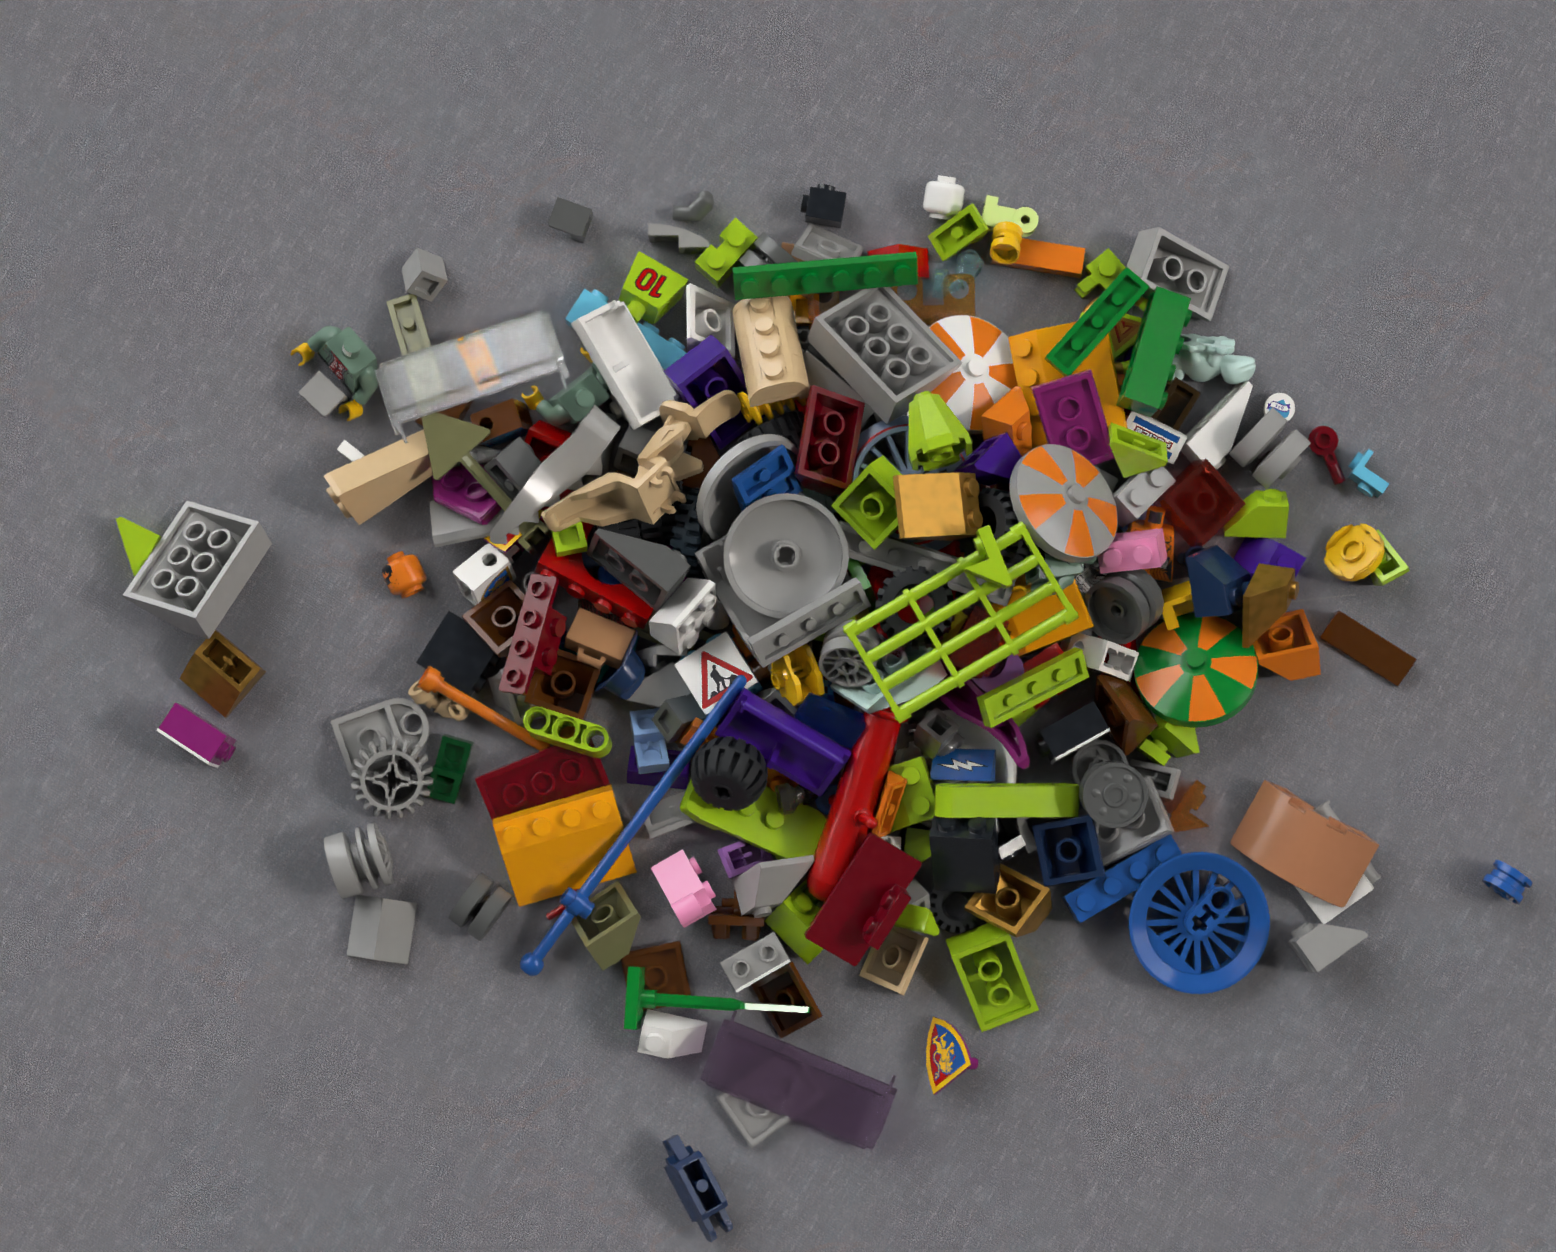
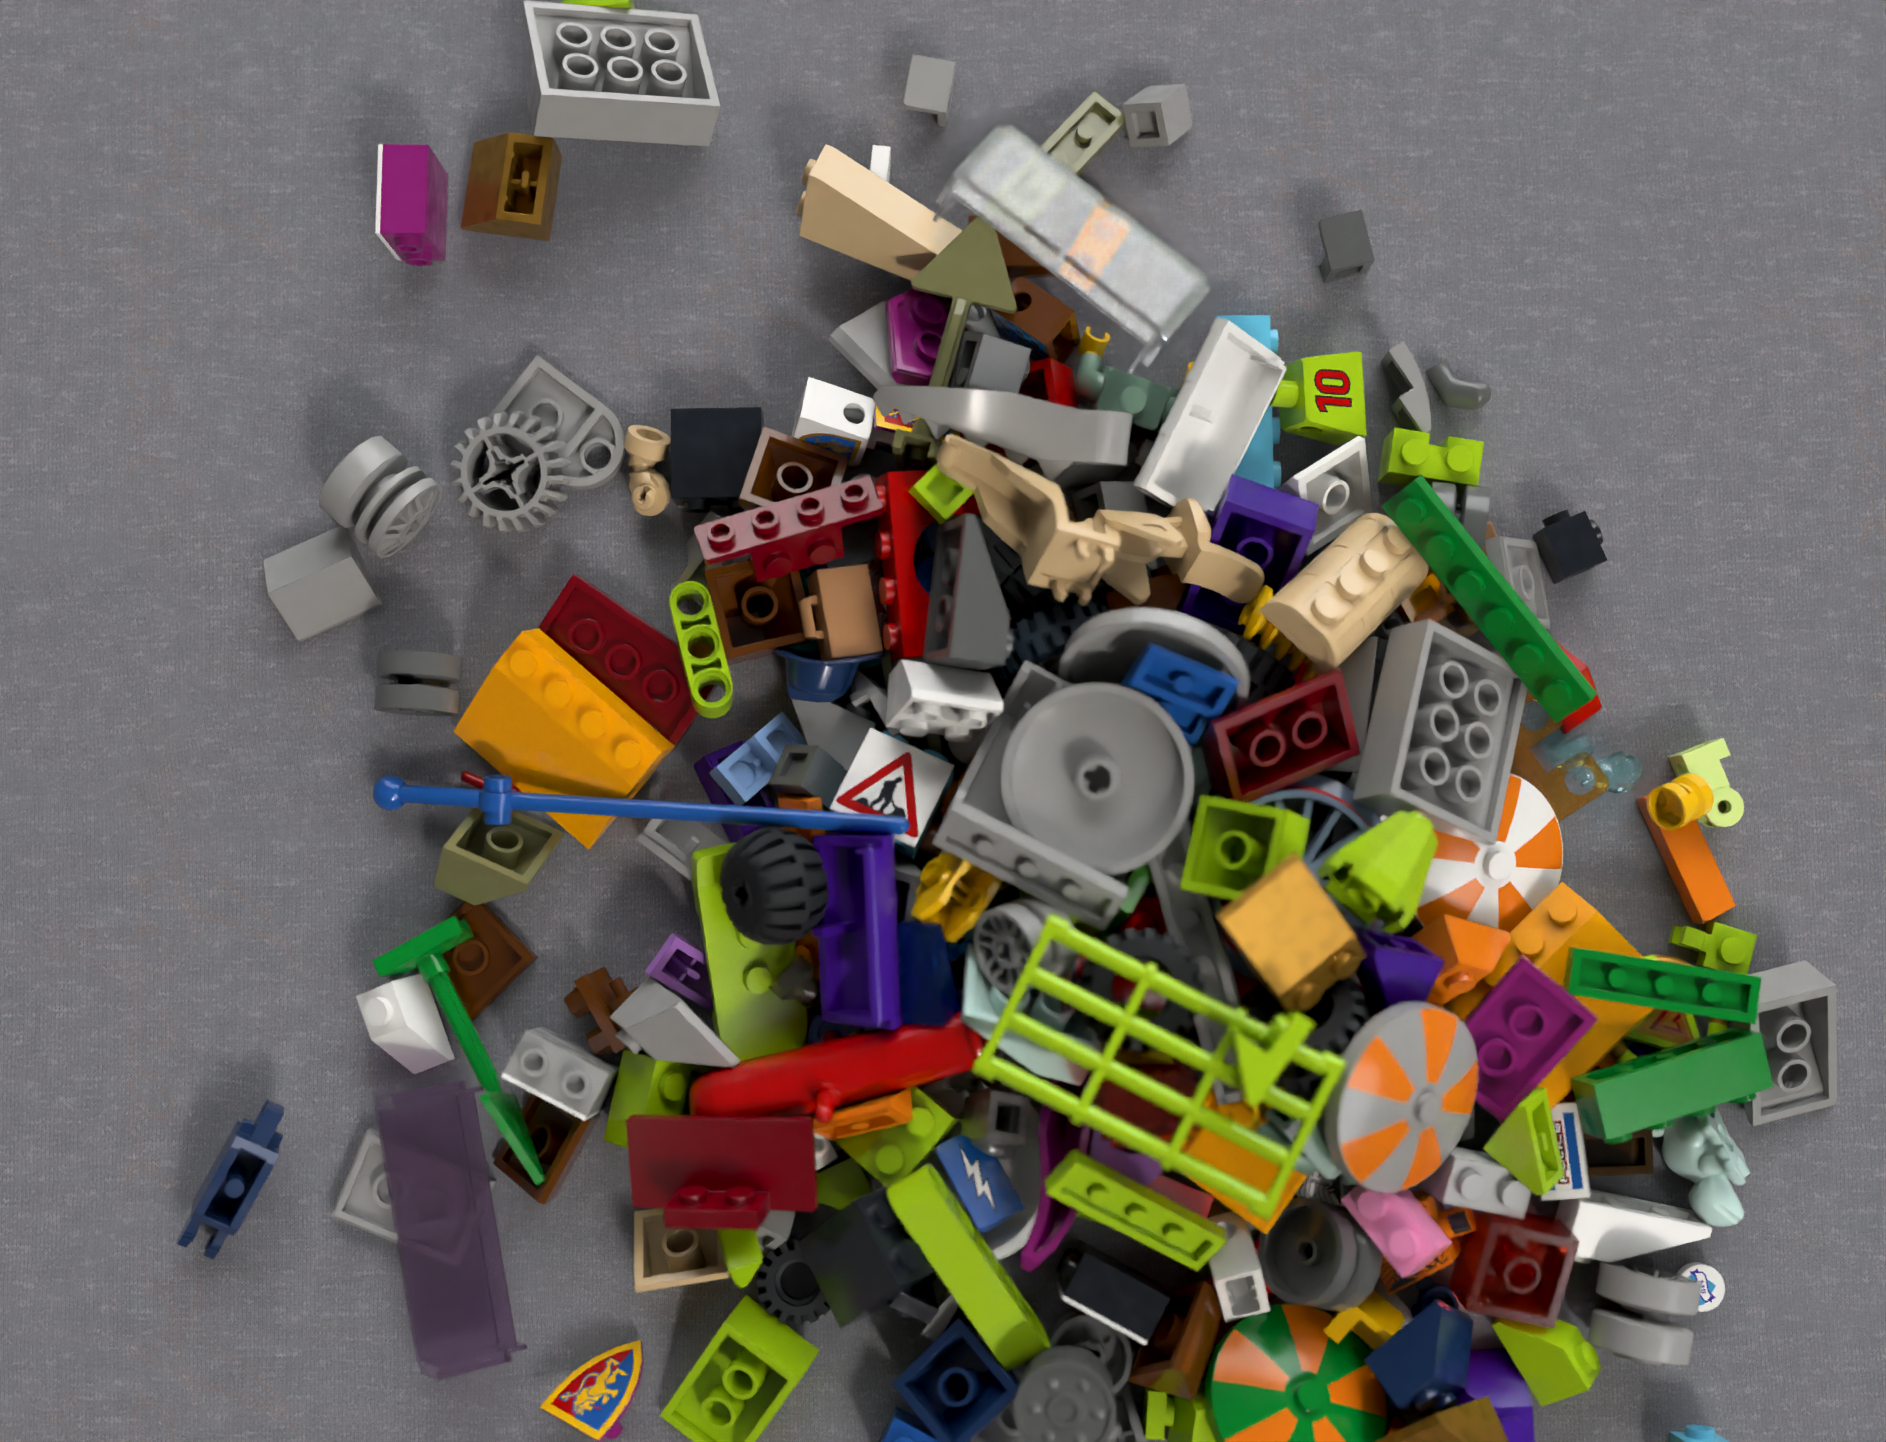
camera: 55 degrees right, 0 degrees up
(348, 360) = (991, 90): sand green torso -> none
(404, 574) = (773, 328): orange head -> none
(434, 682) = (659, 445): orange piece -> none
(450, 768) = (571, 537): dark green slope -> none
(683, 887) = (599, 922): bright pink hinge -> none
(943, 198) = (1680, 687): white head -> none
(958, 232) = (1652, 734): lime slope -> none
(1017, 905) = (842, 1364): pearl gold slope -> none
(1323, 443) = (1693, 1379): dark red plate -> none

